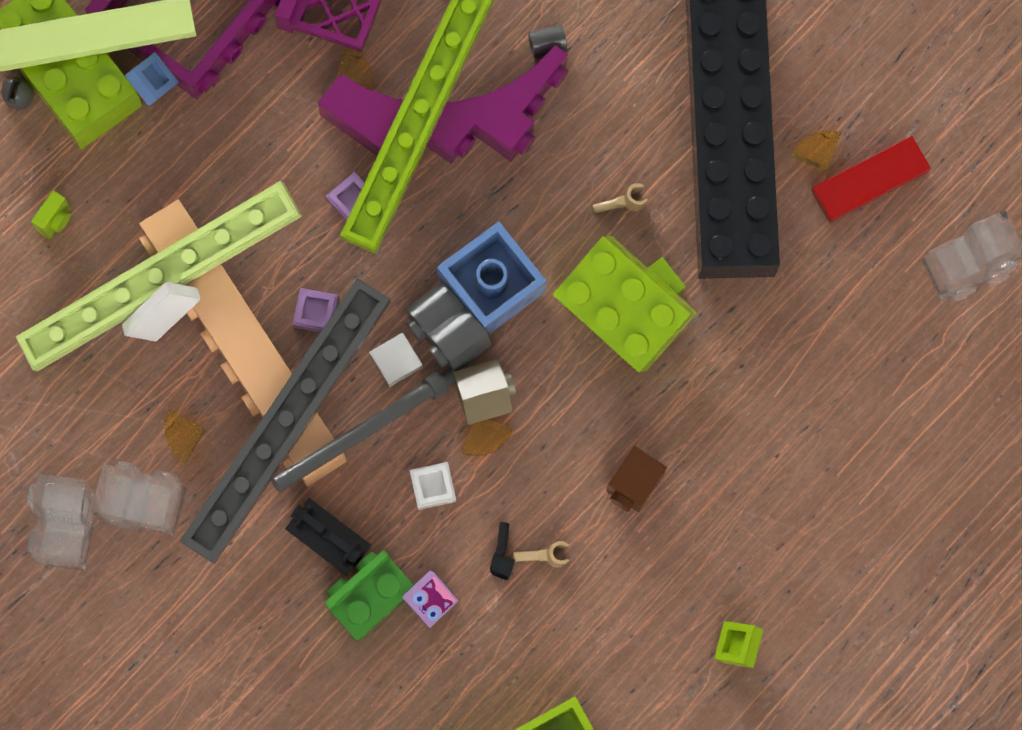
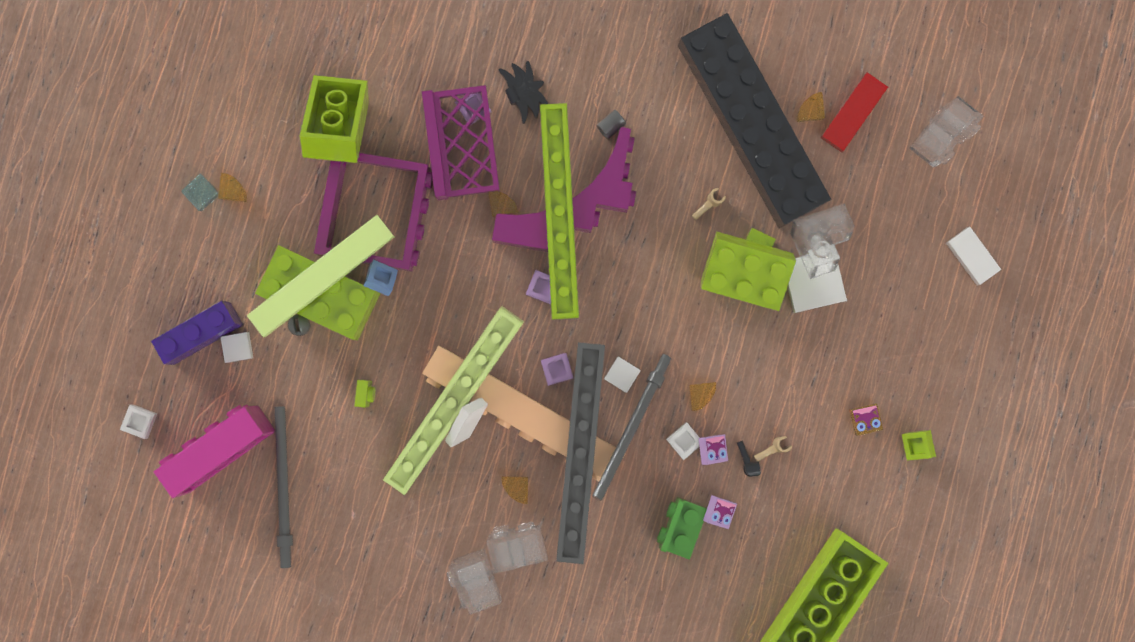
camera: 25 degrees left, 10 degrees up
(327, 536) = (638, 505): black hinge -> none
(447, 327) = (645, 340): dark grey brick -> none
(463, 513) = (713, 449): none -> tile
(484, 391) = (688, 368): dark tan brick -> none
(492, 277) = (657, 297): medium blue brick -> none
(635, 480) = (807, 376): reddish brown brick -> none
(687, 578) = (866, 419): none -> tile
(709, 366) = (814, 292): none -> white tile
(743, 304) = (816, 238): none -> clear brick
(937, 438) = (973, 256): none -> white tile

